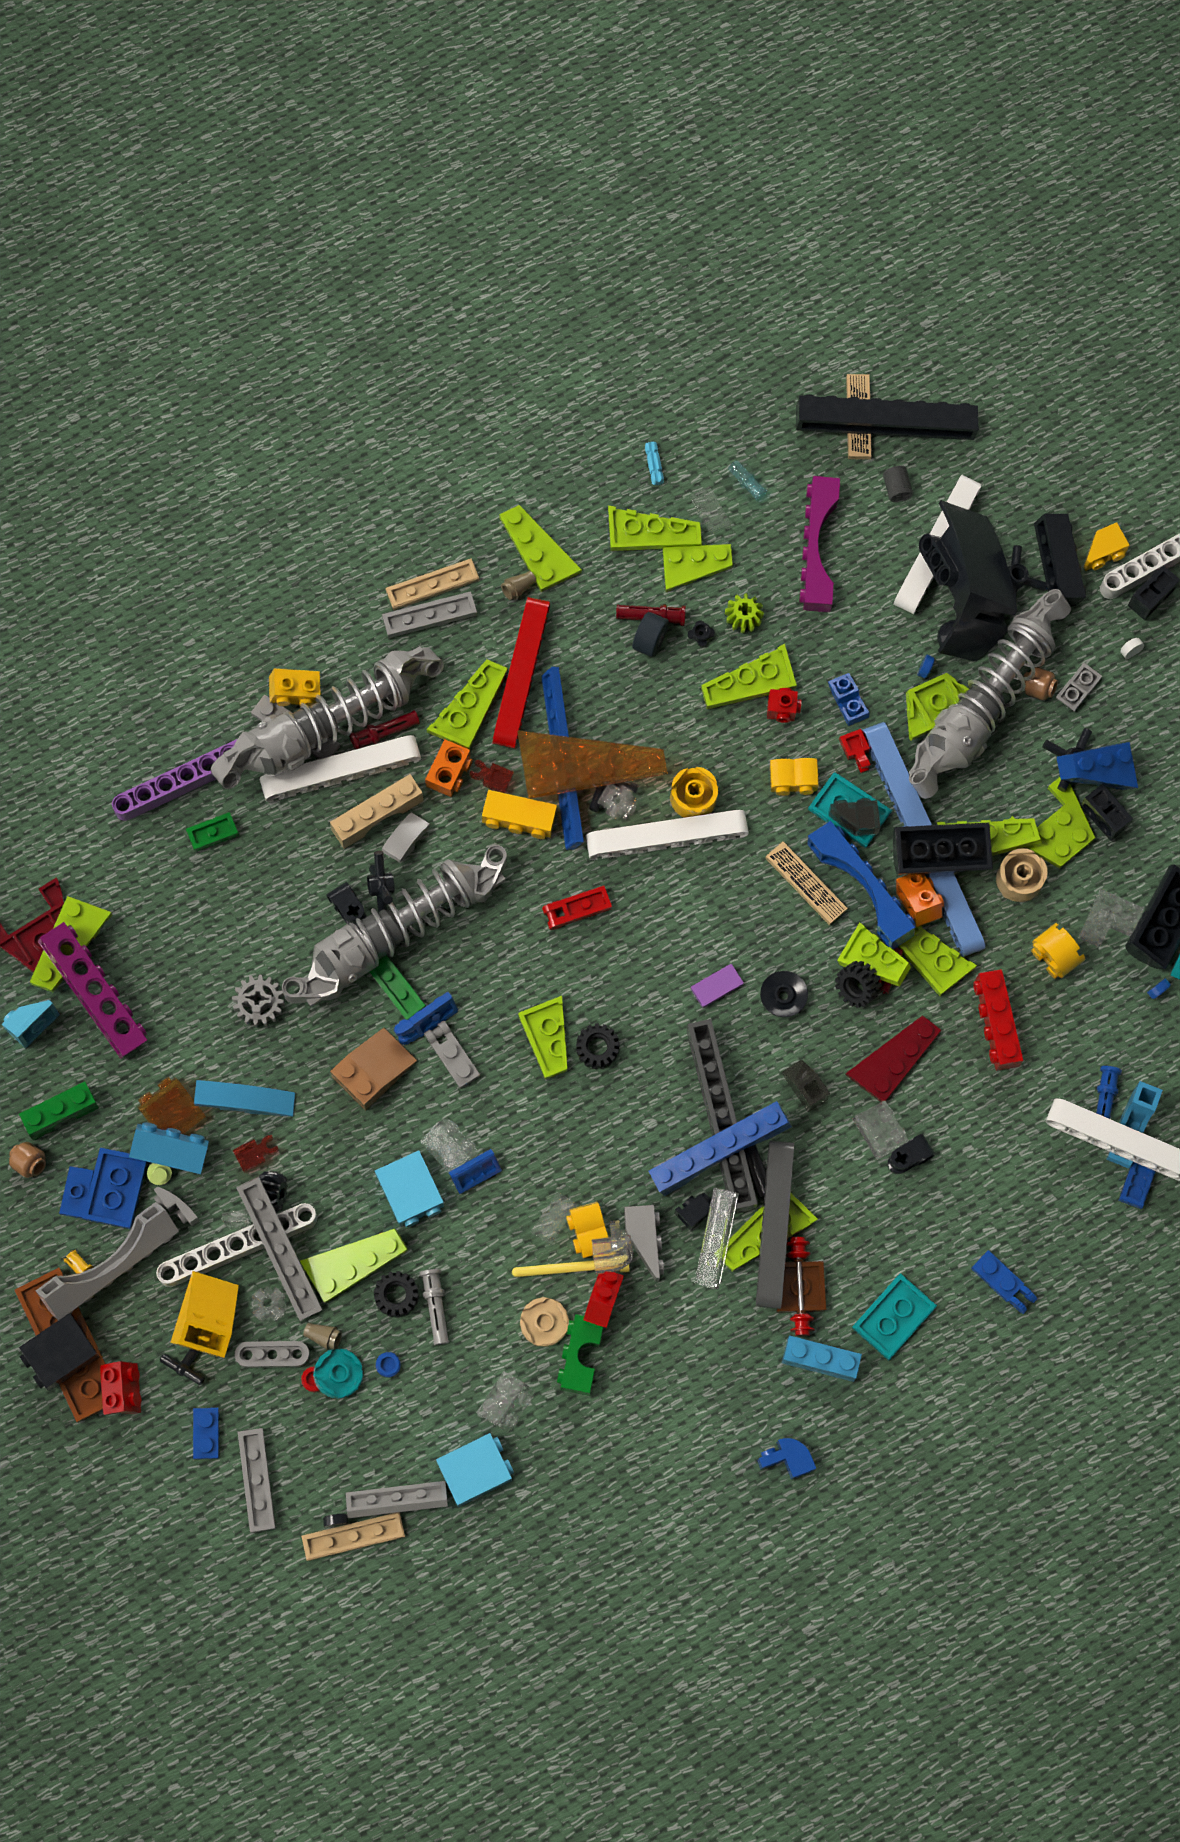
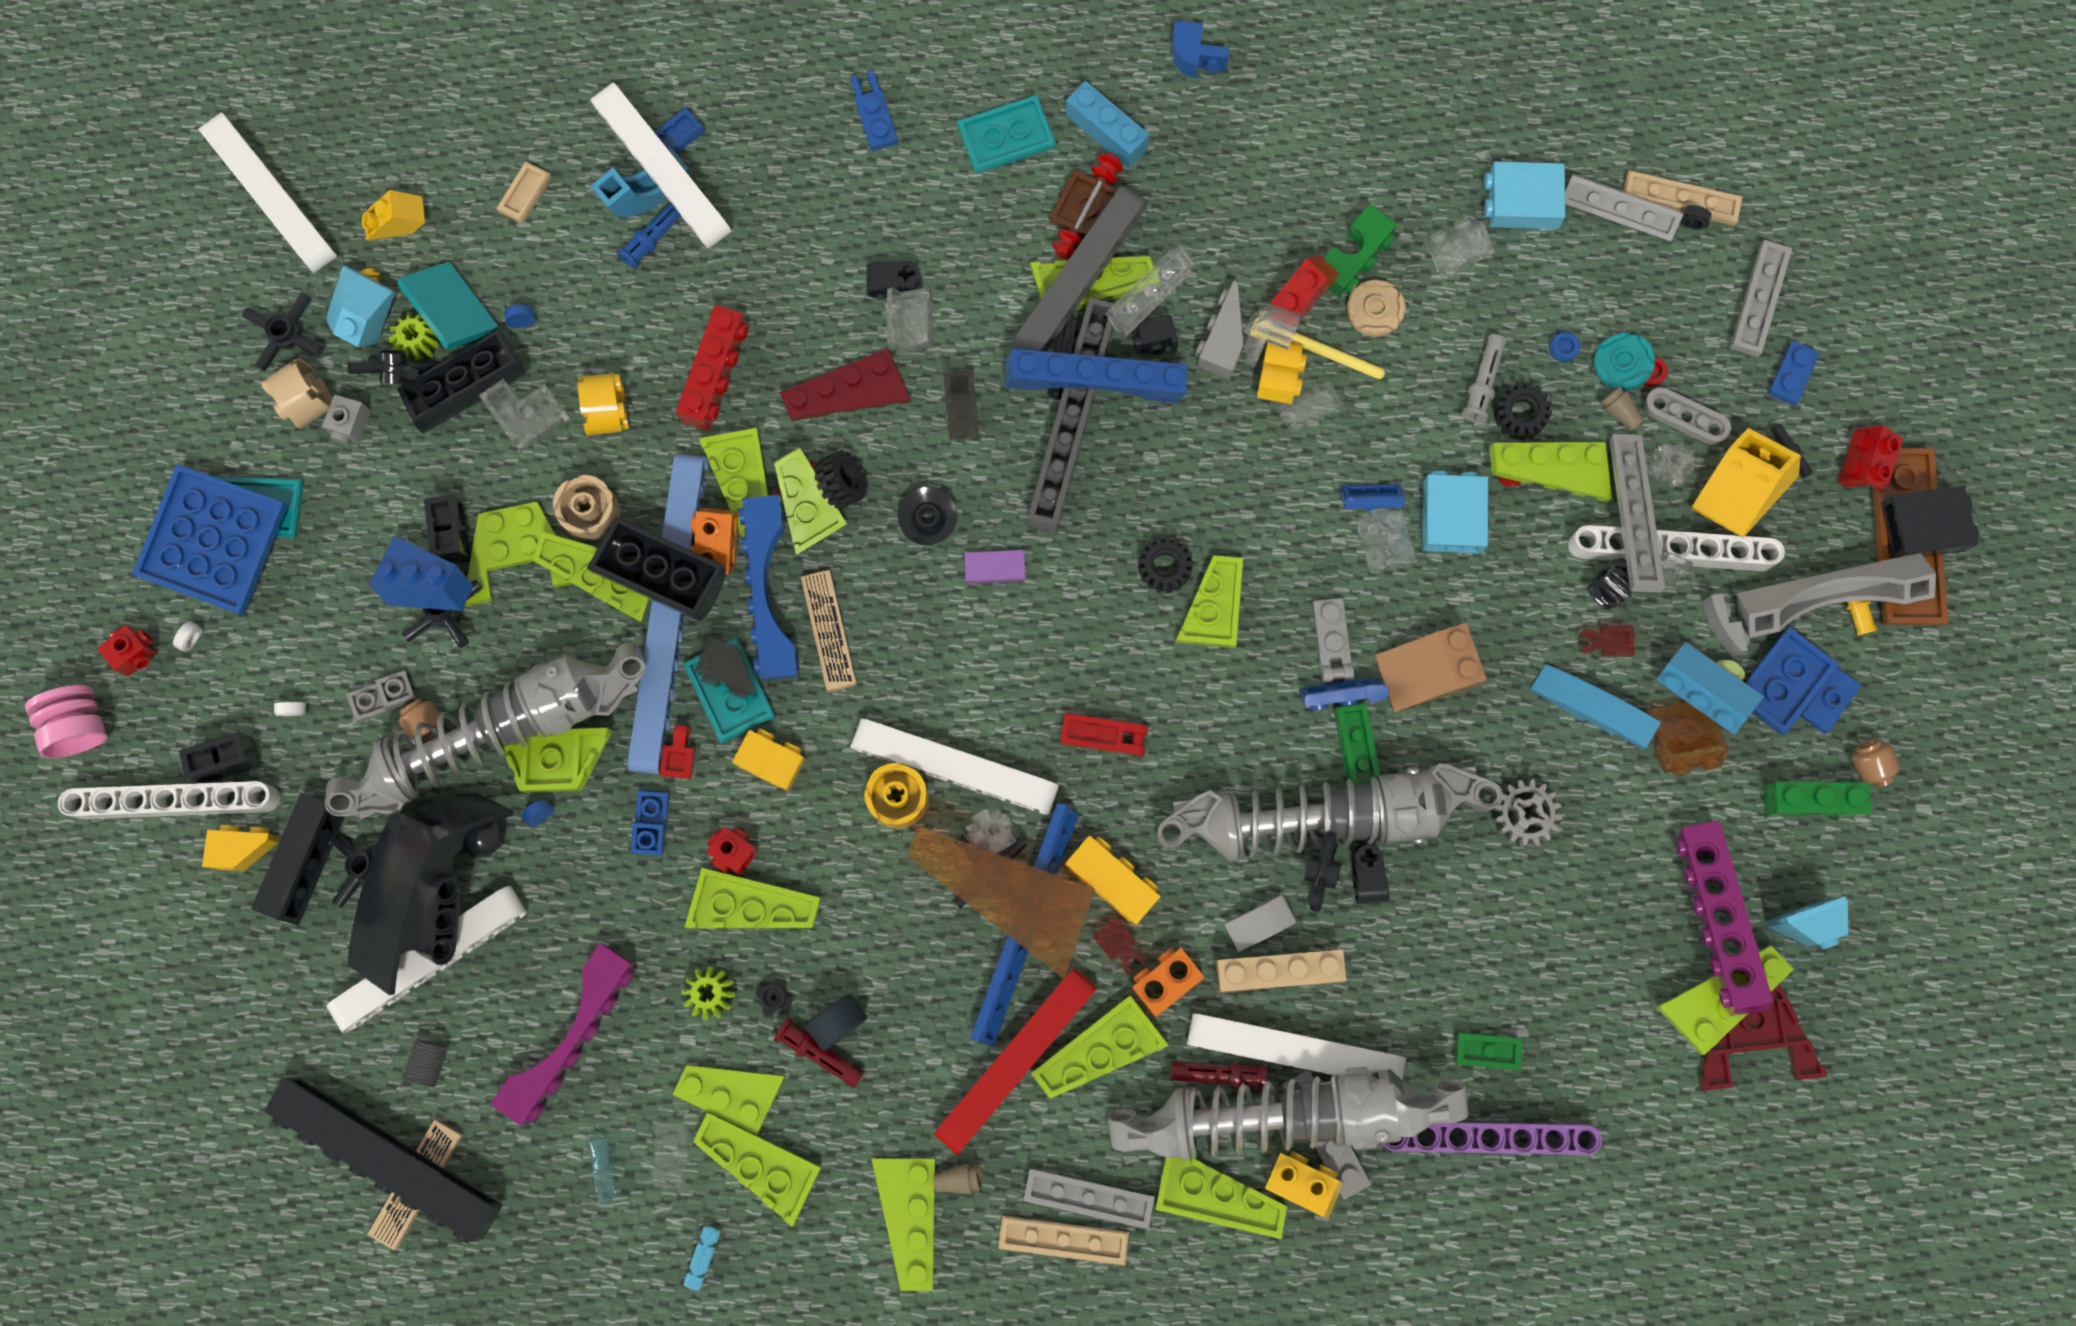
camera: 145 degrees left, 5 degrees up
(345, 654) = (1210, 1196): none -> lime wing

